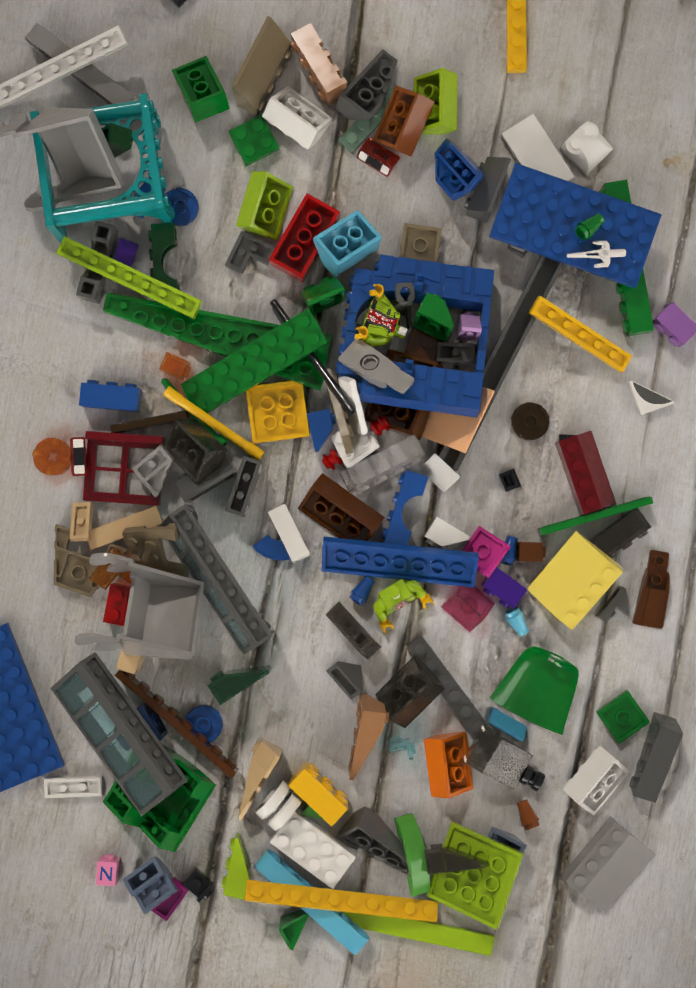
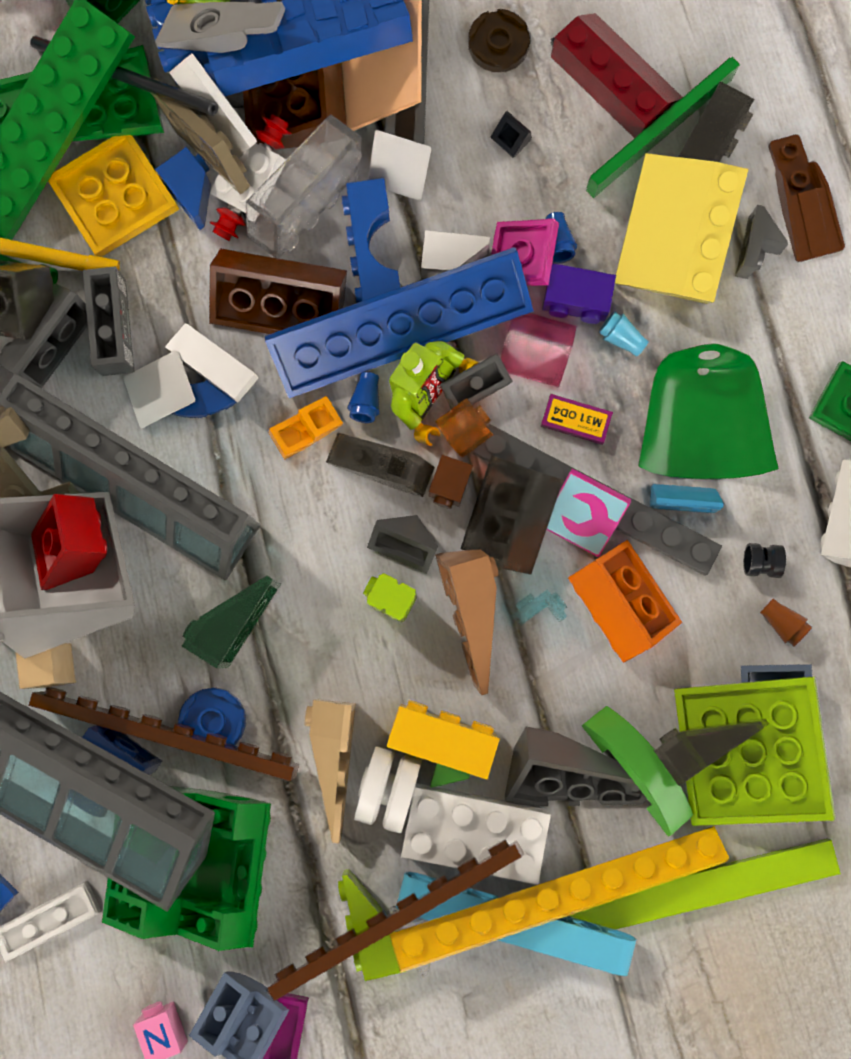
camera: 25 degrees left, 5 degrees down
(172, 601) = (67, 540): none -> red slope
(199, 885) = (324, 989): black bracket -> none
(254, 534) = (159, 389): none -> white sticker
(262, 871) = (383, 925): none -> reddish brown plate
(291, 927) = (501, 980): green slope -> none
(323, 591) = (305, 428): none -> light orange slope
(326, 707) = (390, 597): none -> lime brick
(385, 658) = (450, 482): none -> reddish brown brick
(407, 633) = (465, 427): none -> clear orange brick
(424, 612) = (477, 382): none -> dark grey slope
(450, 709) = (587, 512): none -> tile
(470, 654) = (576, 419): none -> tile
(497, 757) = (696, 549): clear smoke slope -> none
(531, 551) = (592, 222): reddish brown brick -> none

